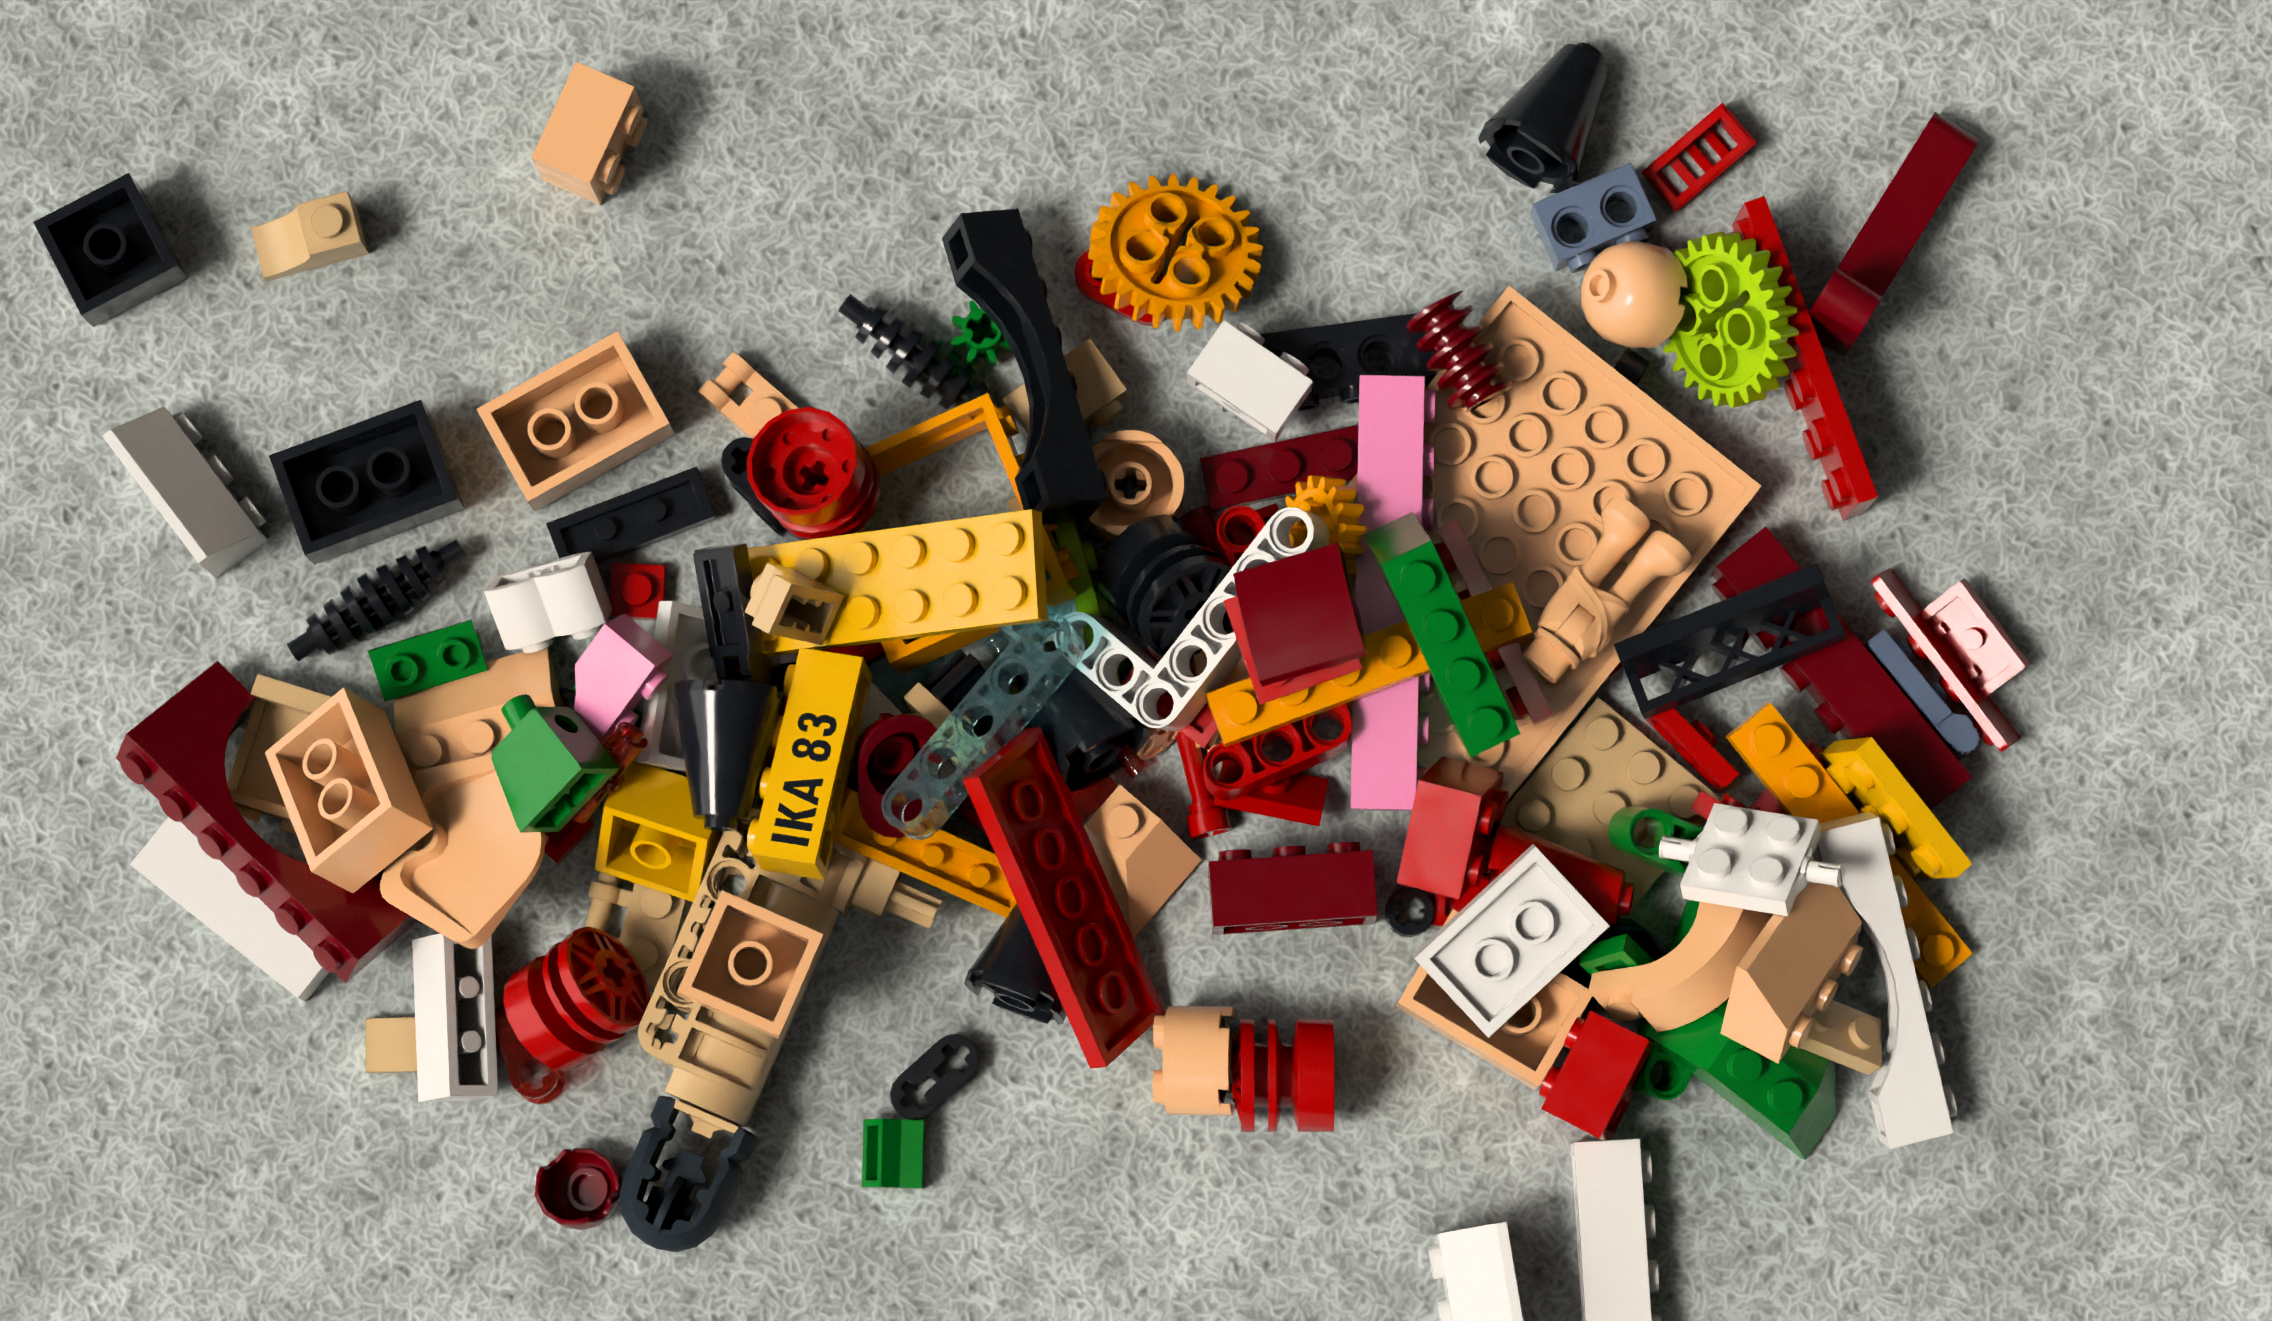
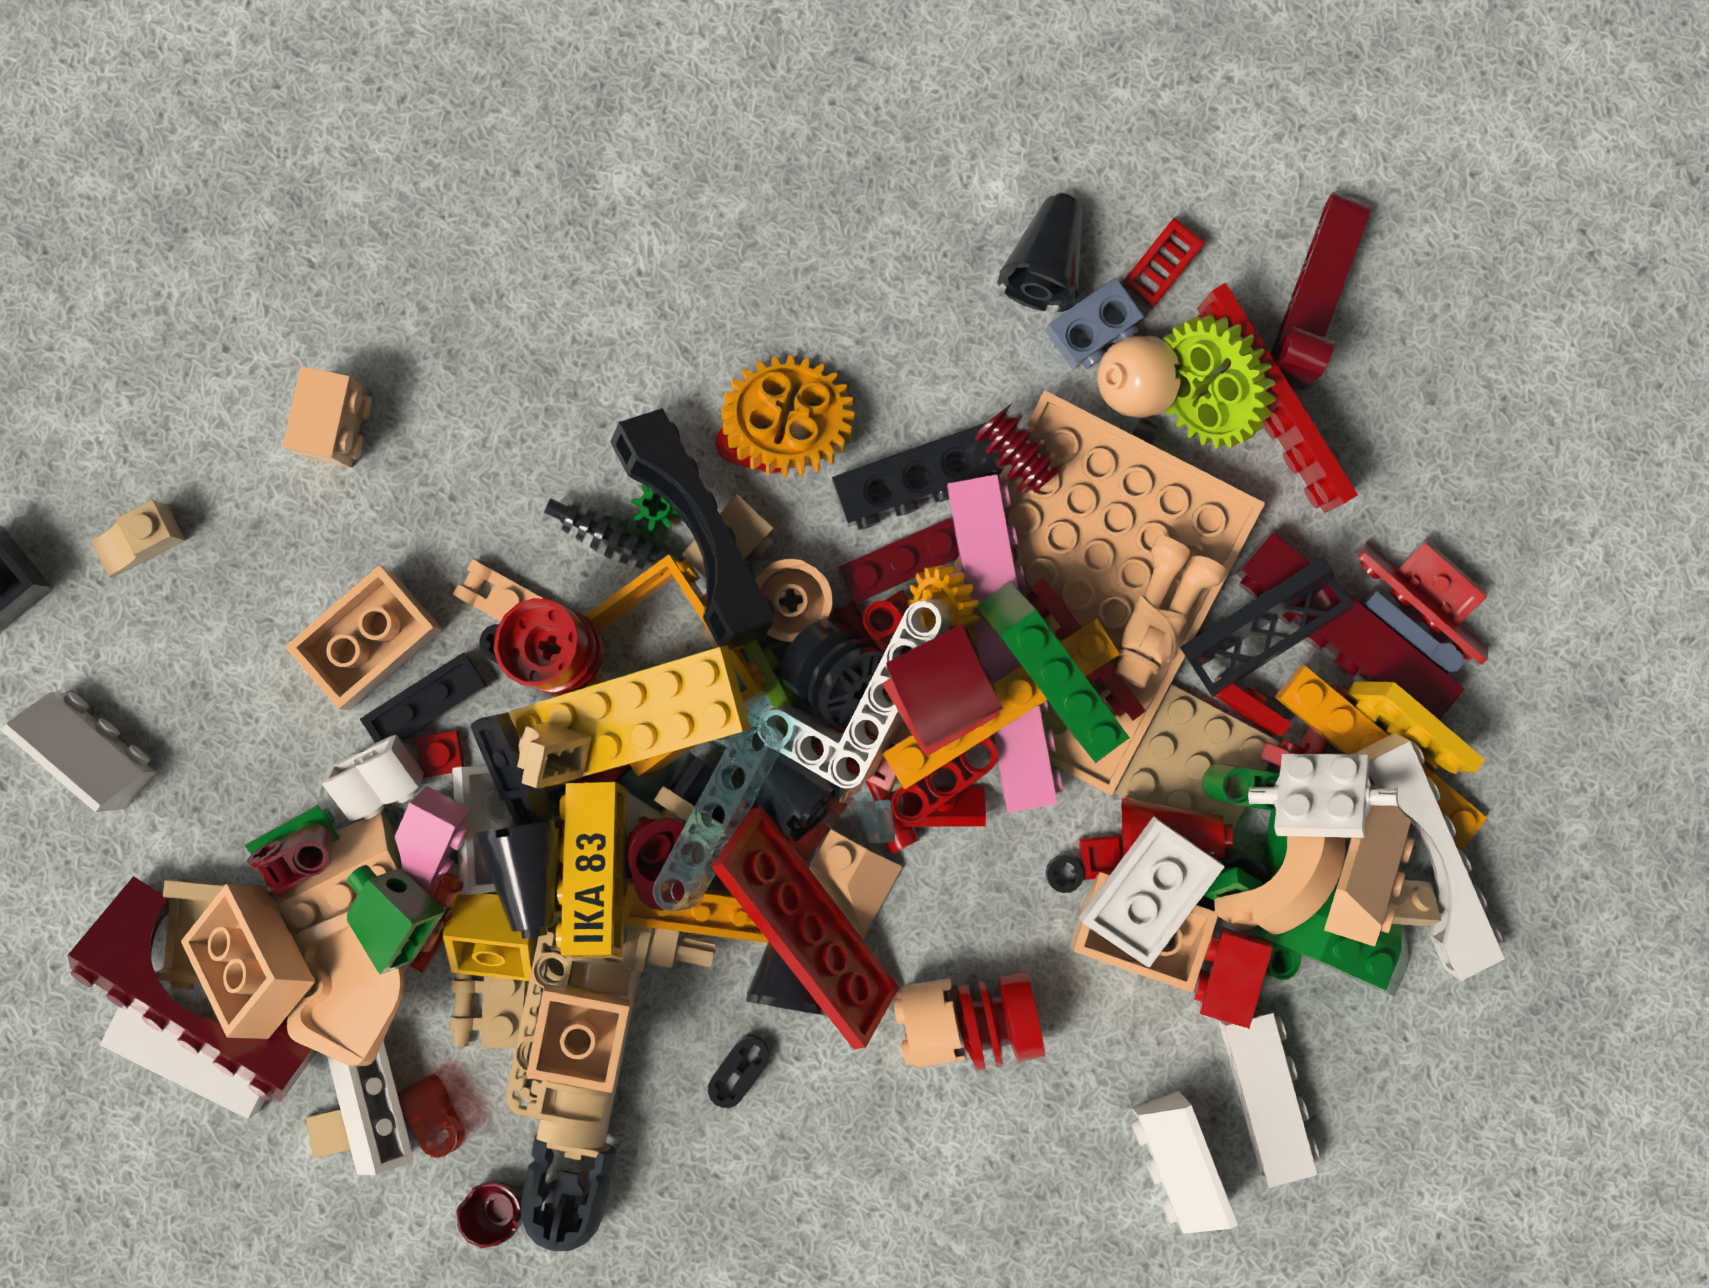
camera: 15 degrees left, 5 degrees up
(321, 633) = (245, 802): black piece -> none
(366, 482) = (216, 717): black brick -> none
(424, 680) = (285, 861): none -> dark red piece
(576, 998) = (456, 1078): red wheel -> none
(893, 1153) = (720, 1136): green piece -> none
(1178, 786) = (875, 820): none -> clear light blue tile
(1250, 379) = (865, 502): white brick -> none
(1292, 889) = (976, 881): dark red brick -> none
(1452, 827) = (1088, 812): brick -> none

